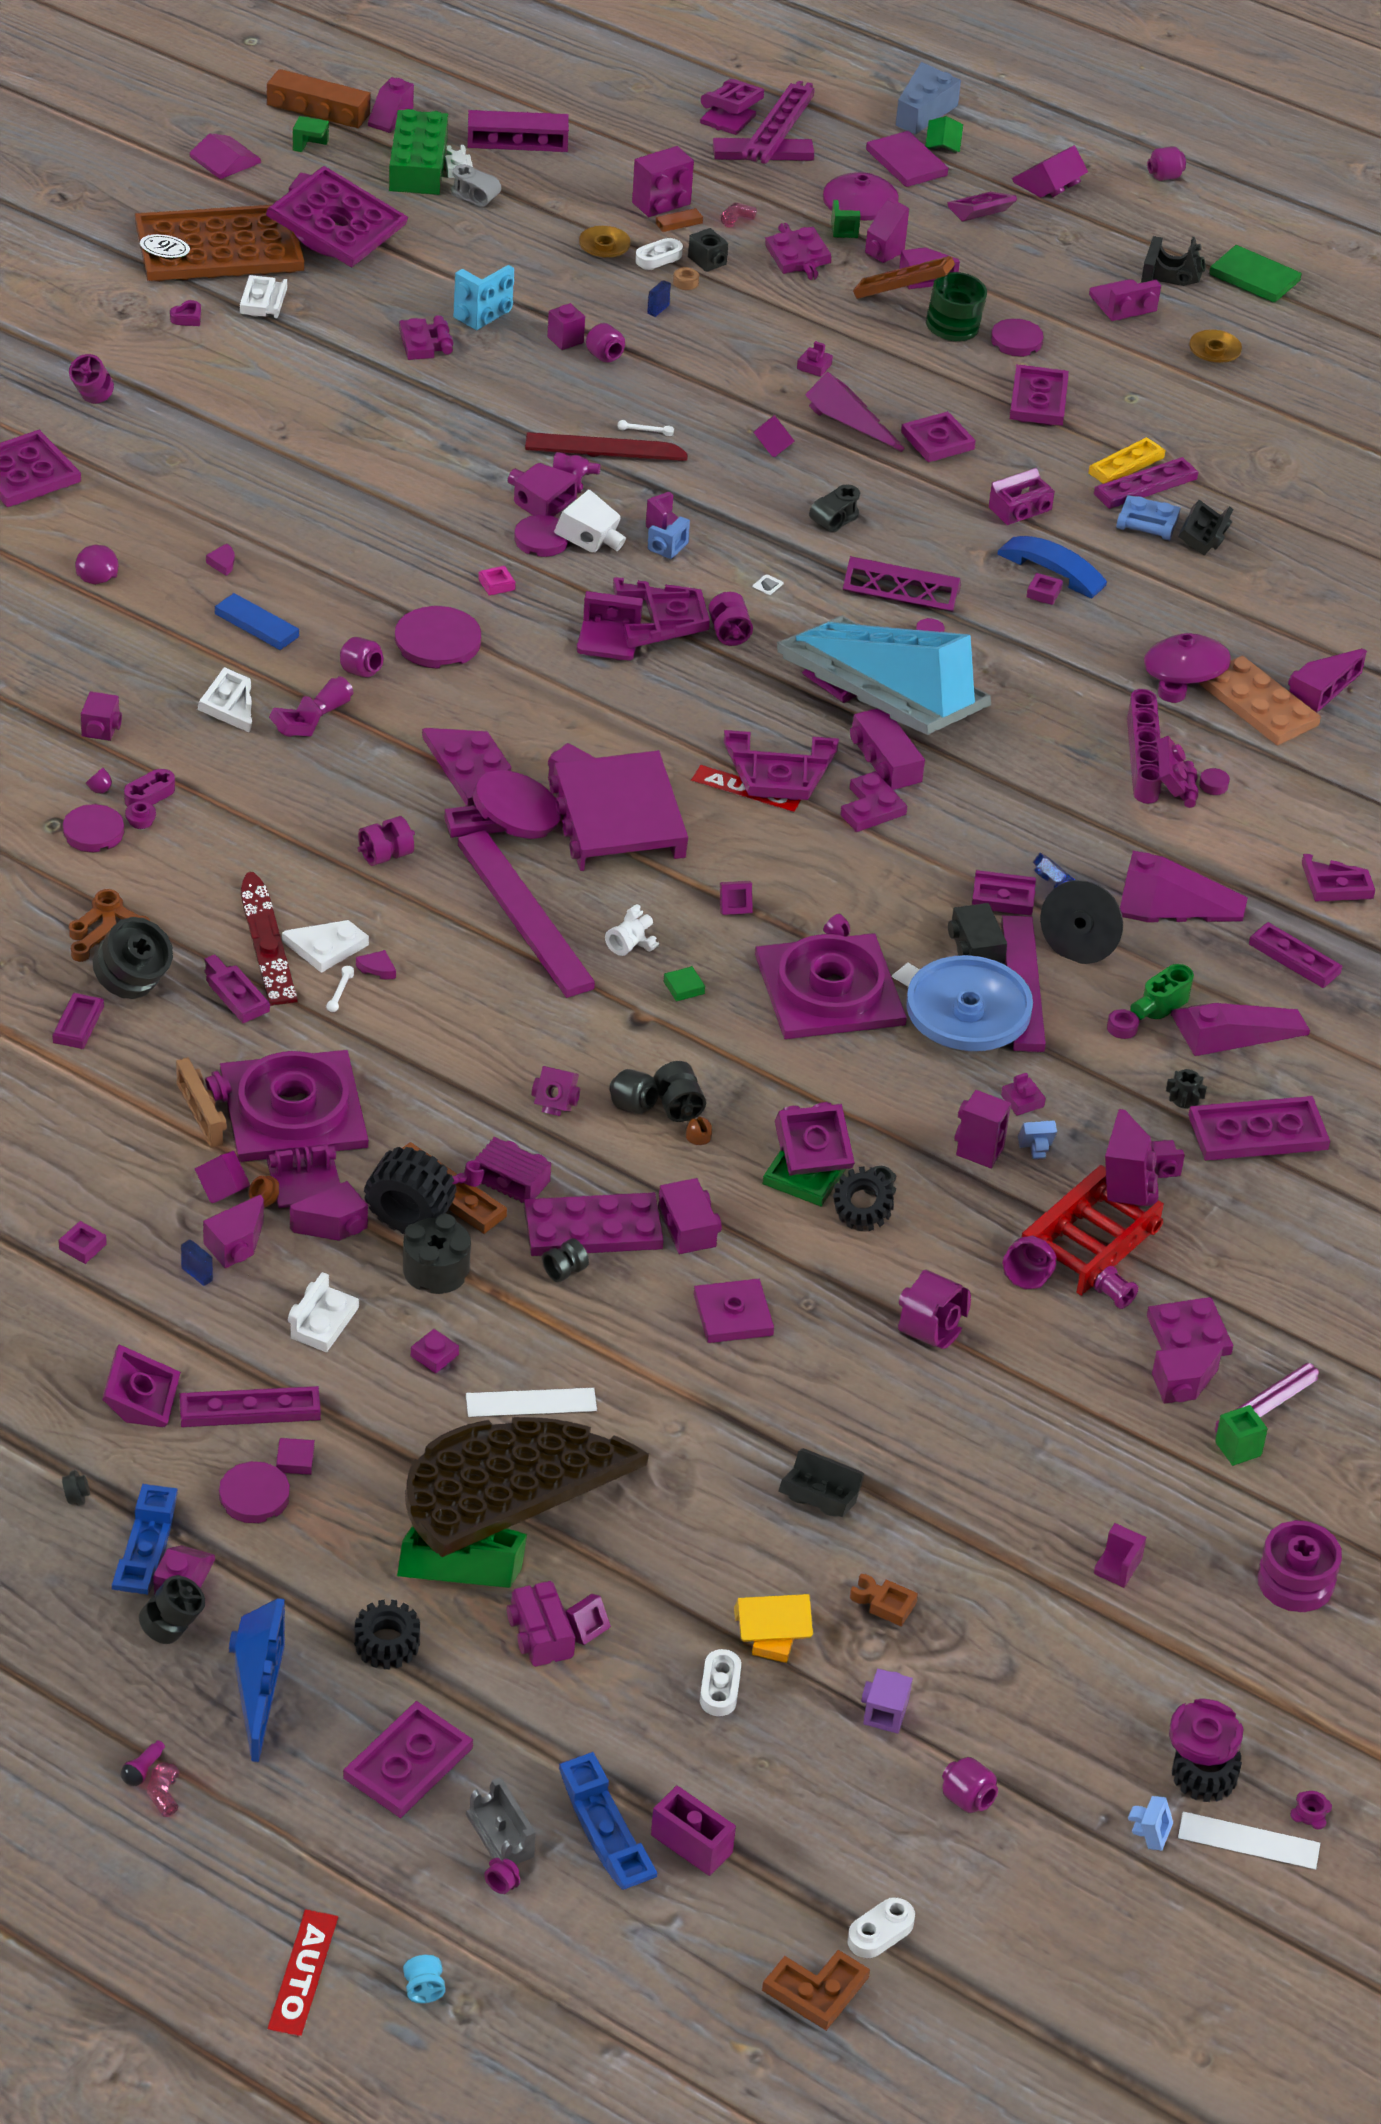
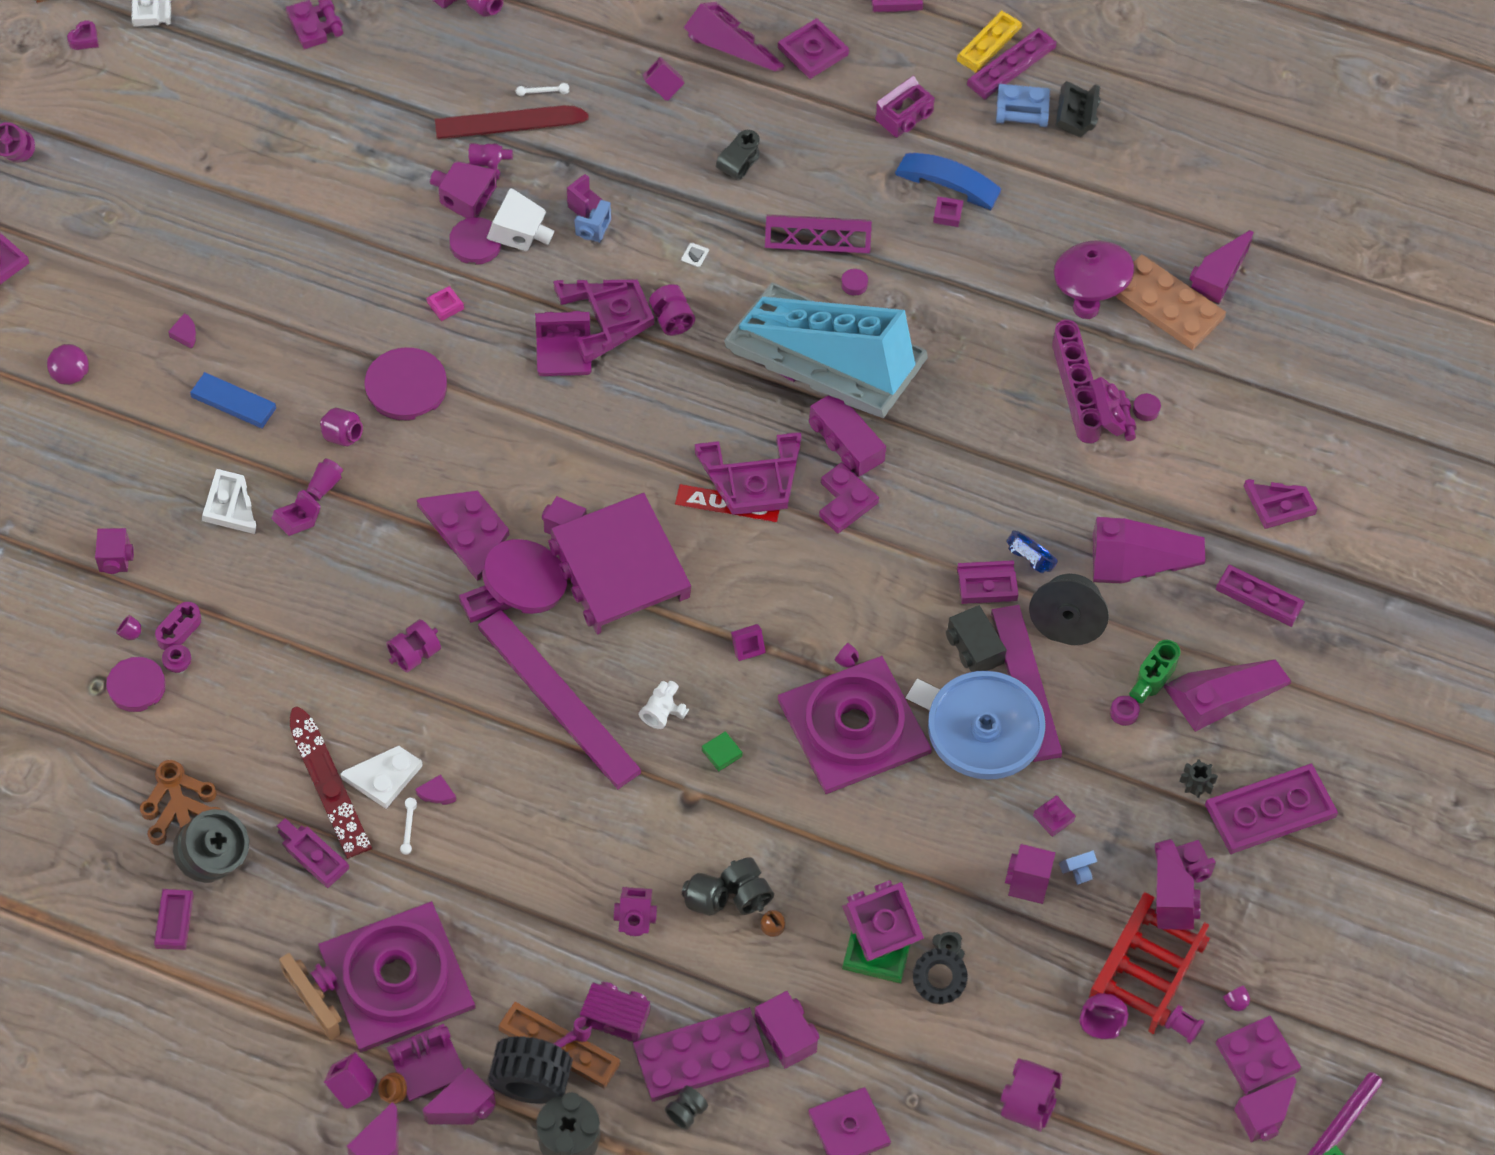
camera: 10 degrees left, 15 degrees up
(1179, 1277) = (1238, 998): none -> magenta hinge

